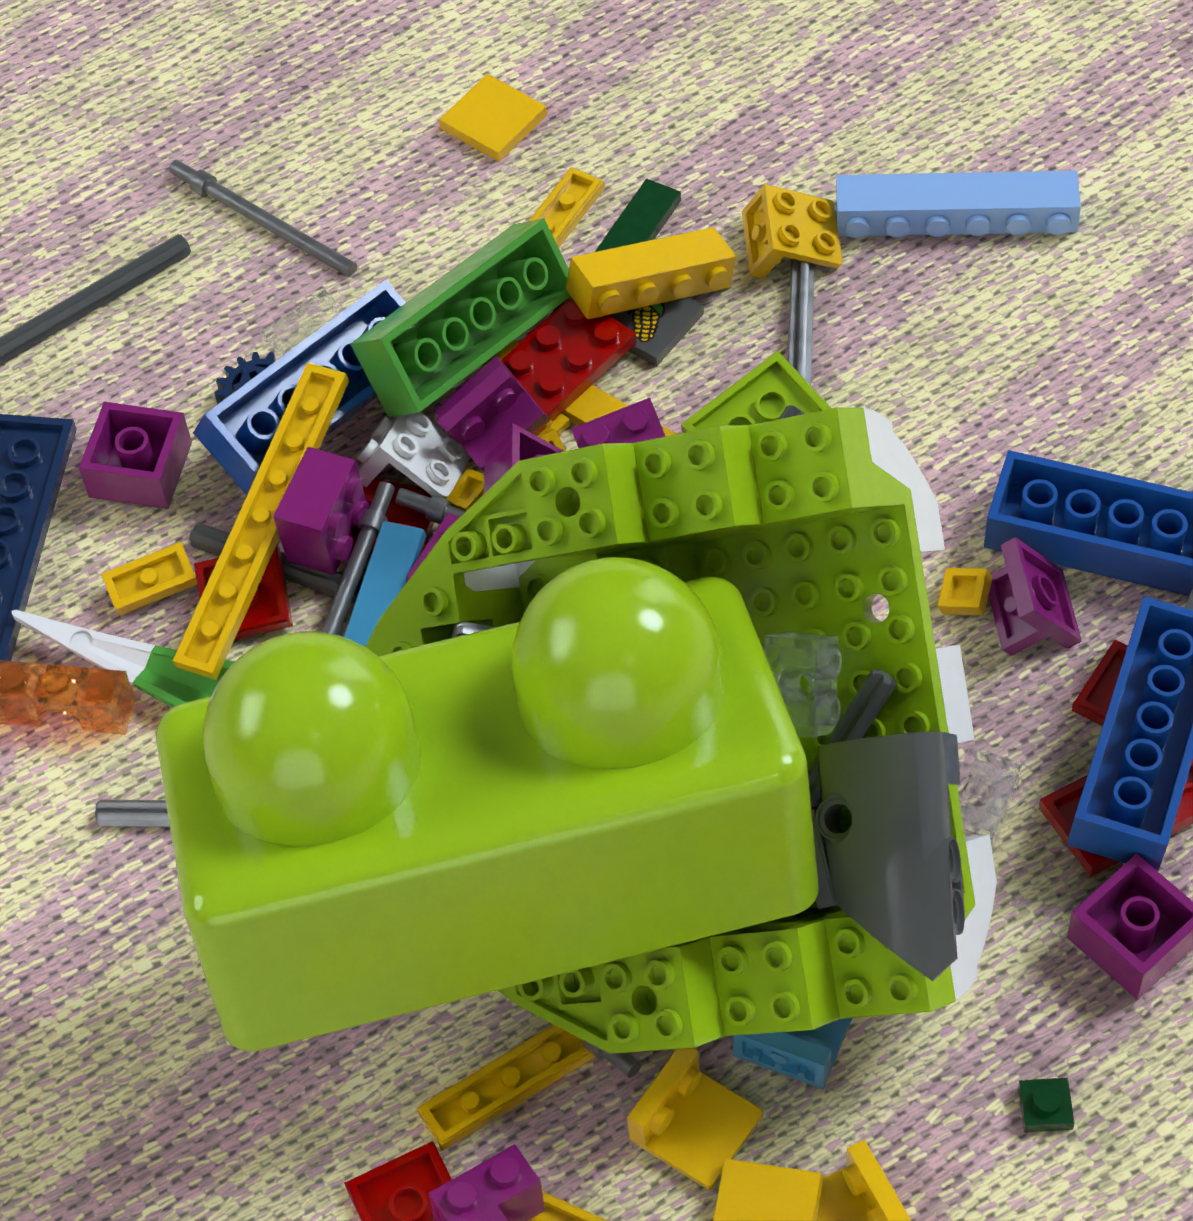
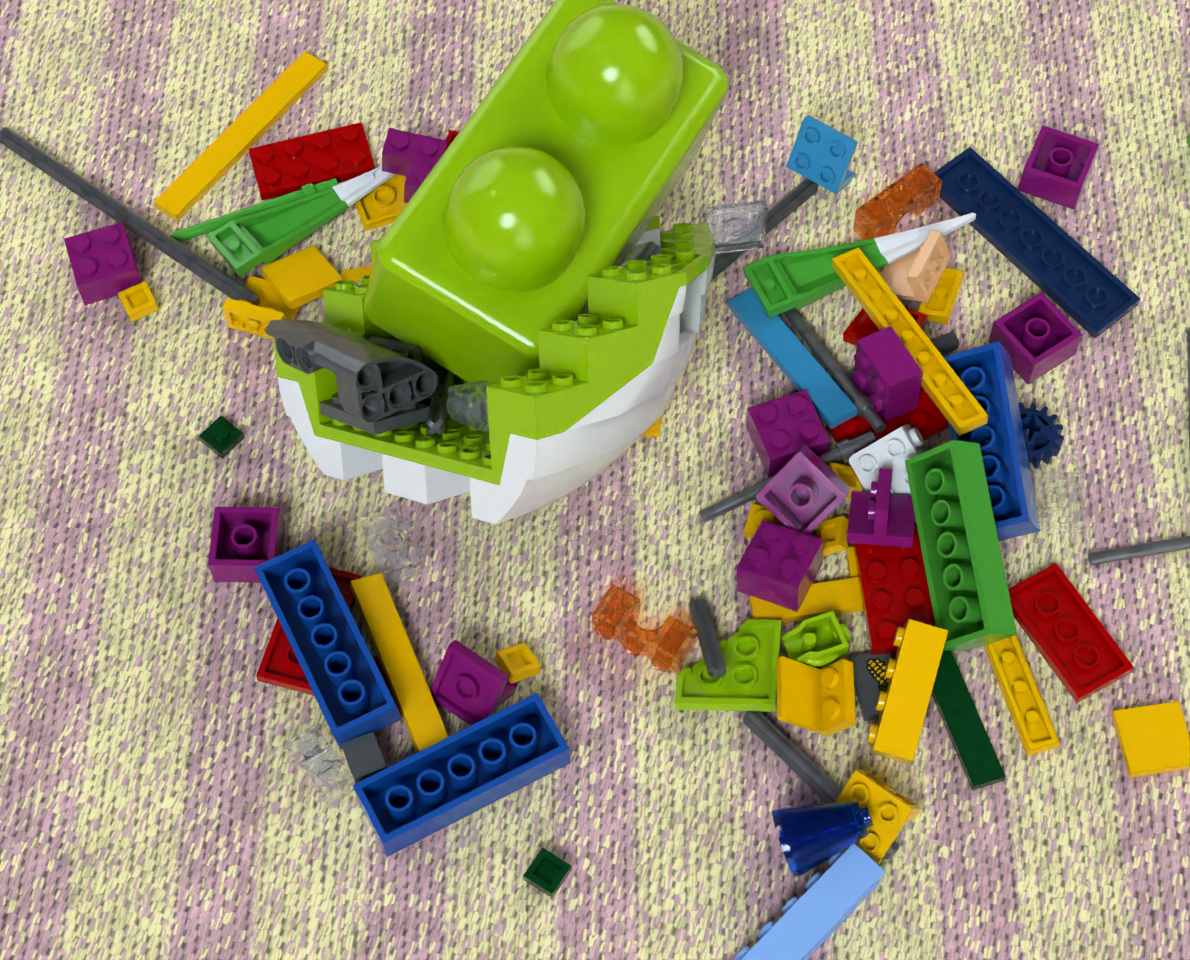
camera: 130 degrees right, 5 degrees up
(67, 800) = (822, 155): none -> dark azure bracket
(145, 604) = (919, 271): none -> light nougat bracket
(452, 223) = (1067, 633): none -> red plate
(673, 380) = (817, 641): none -> lime hand
(724, 339) = (816, 697): none -> yellow bracket
(858, 232) = (819, 832): none -> clear blue cone
(1084, 681) = (398, 661): none -> yellow tile
(1121, 407) = (547, 872): none -> dark green plate

